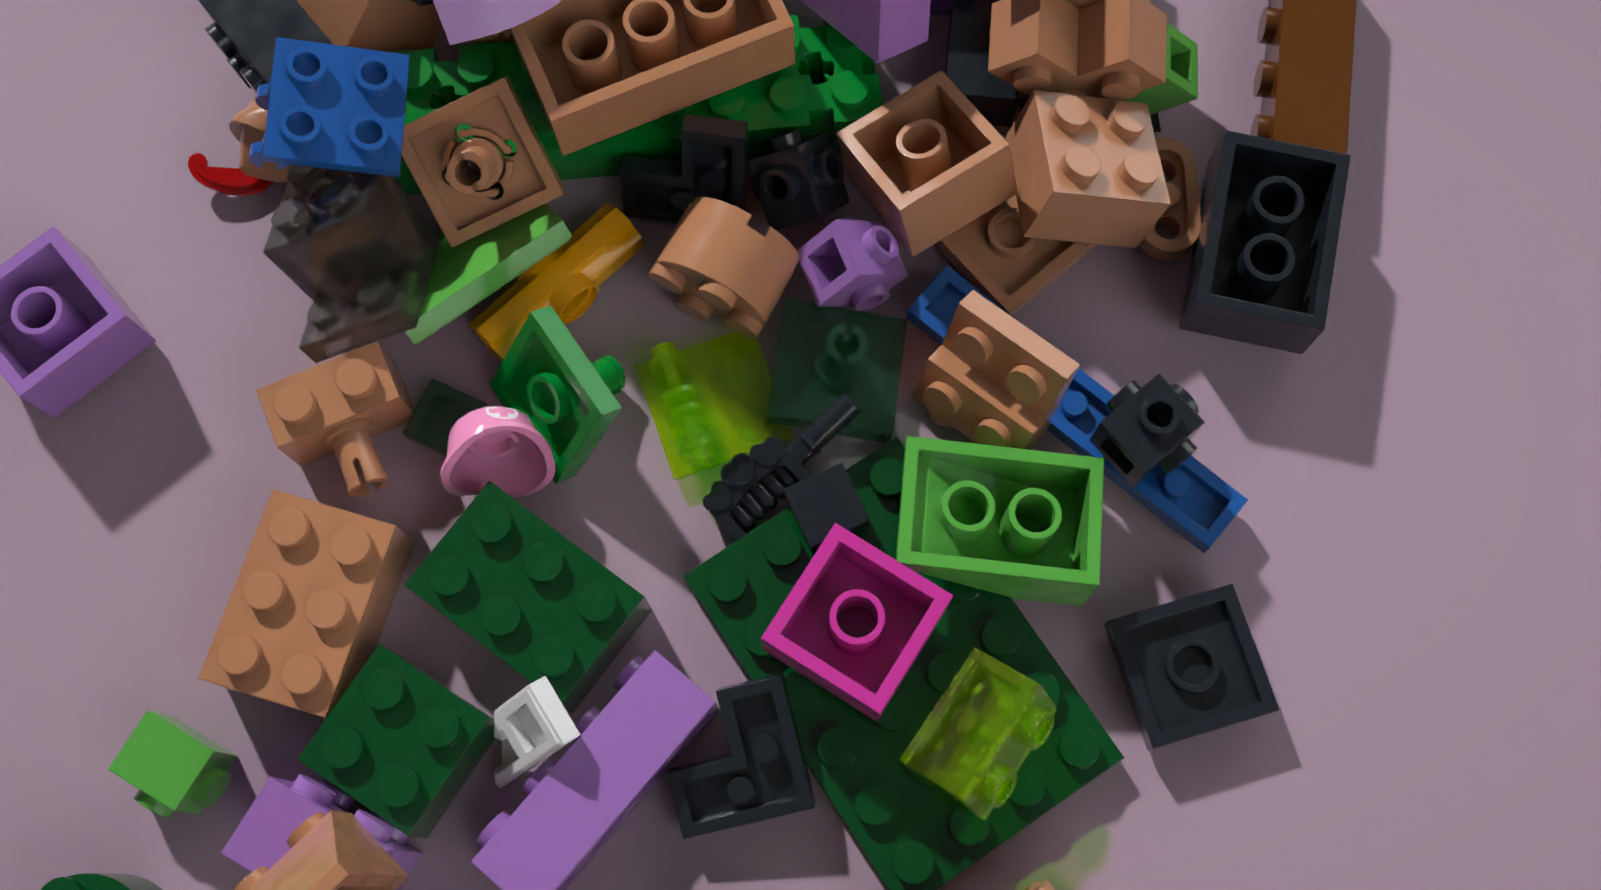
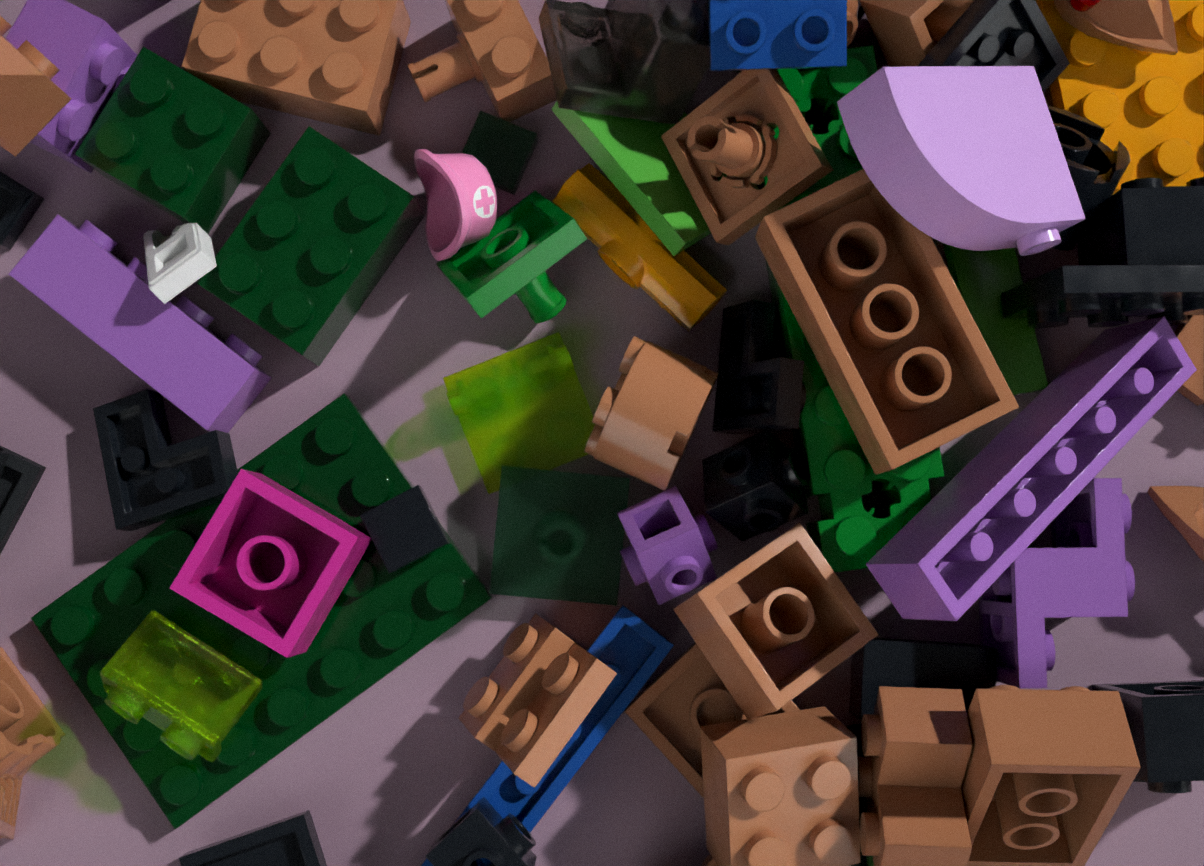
camera: 90 degrees right, 10 degrees up
(757, 478) = (451, 474): black piece -> none
(1002, 519) = (389, 706): bright green slope -> none

